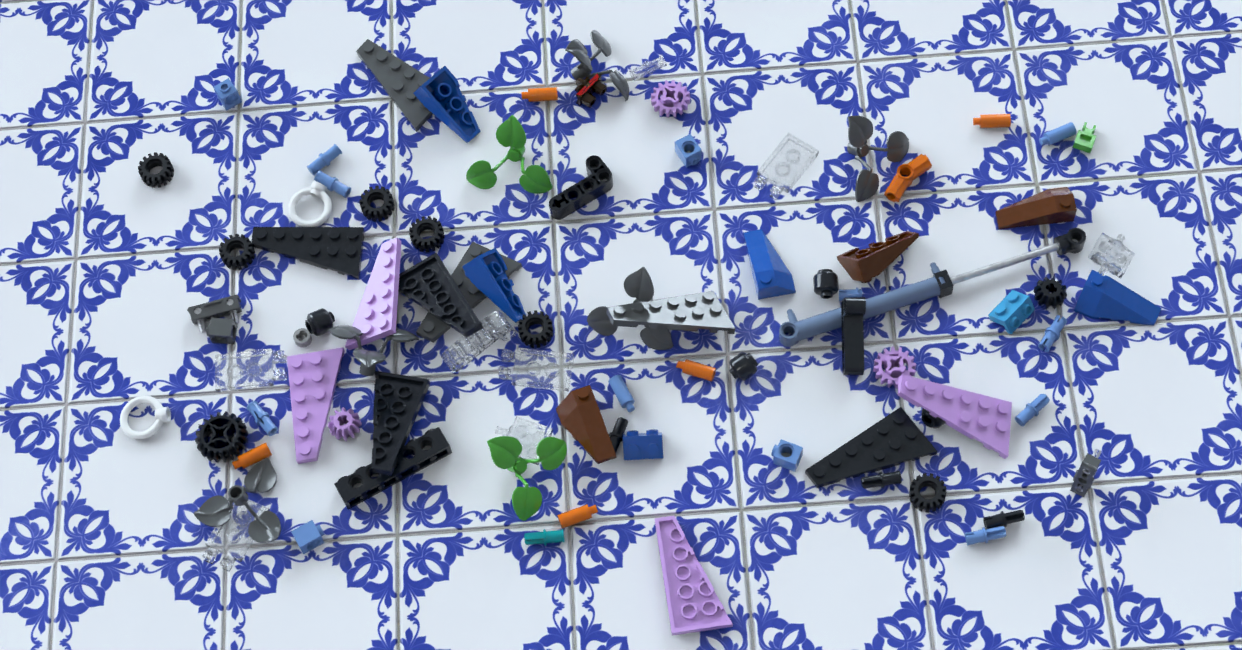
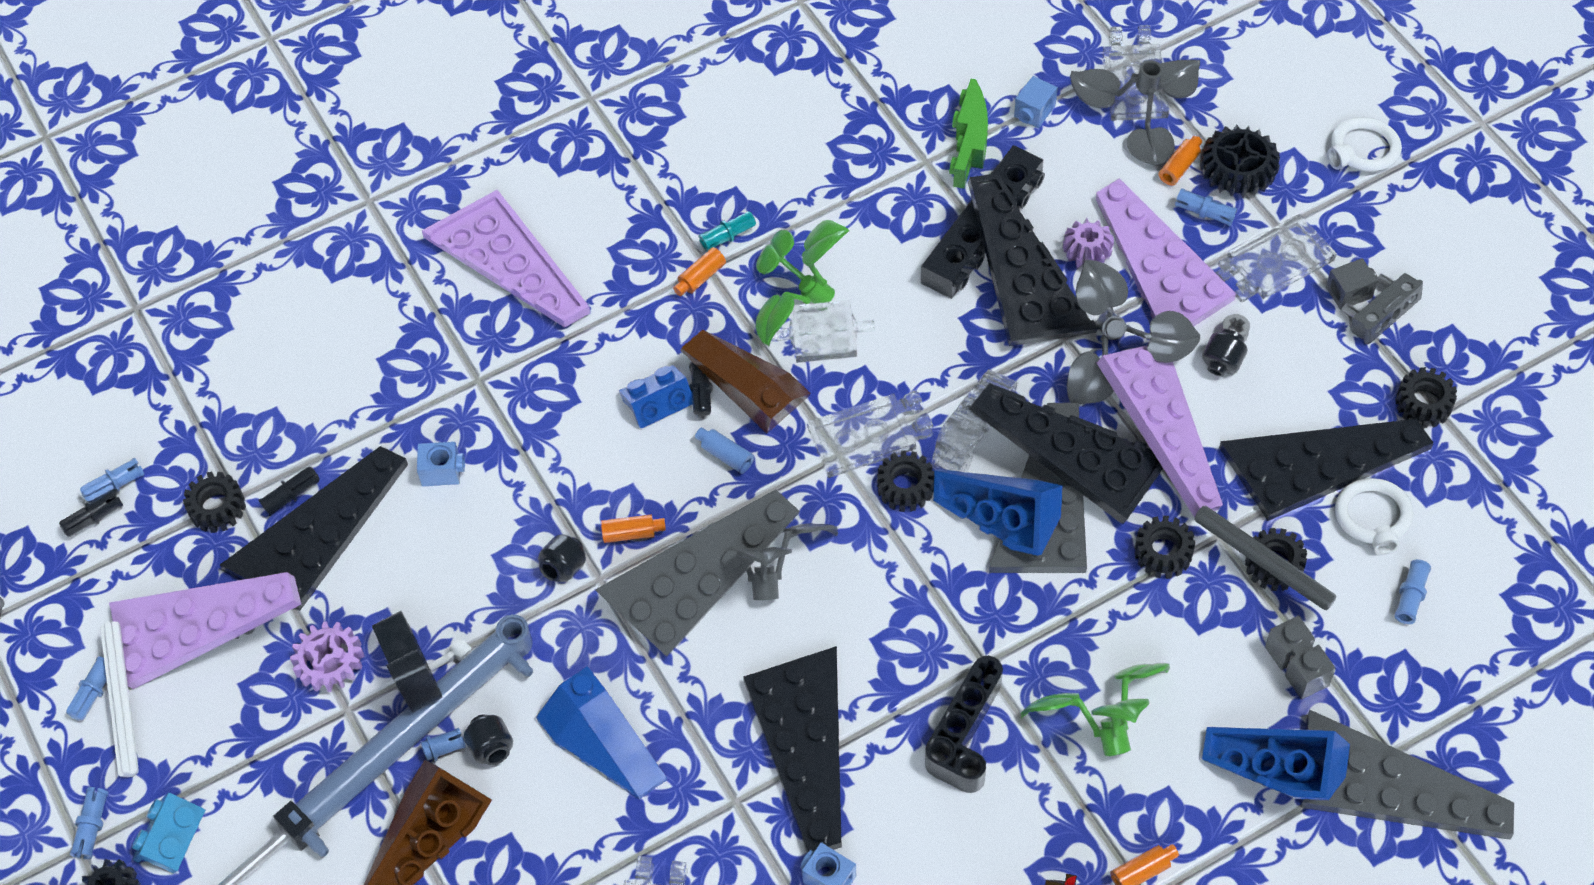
camera: 150 degrees right, 5 degrees down
(332, 184) = (1368, 559): medium blue pin -> none
(355, 537) = (971, 133): none -> bright green slope
(385, 197) = (1265, 558): none -> dark grey axle
(401, 153) = (1310, 667): none -> dark grey piece
(663, 228) = (801, 728): none -> black wing
(820, 342) = (458, 650): none -> white hand
(1017, 393) = (119, 699): none -> white axle

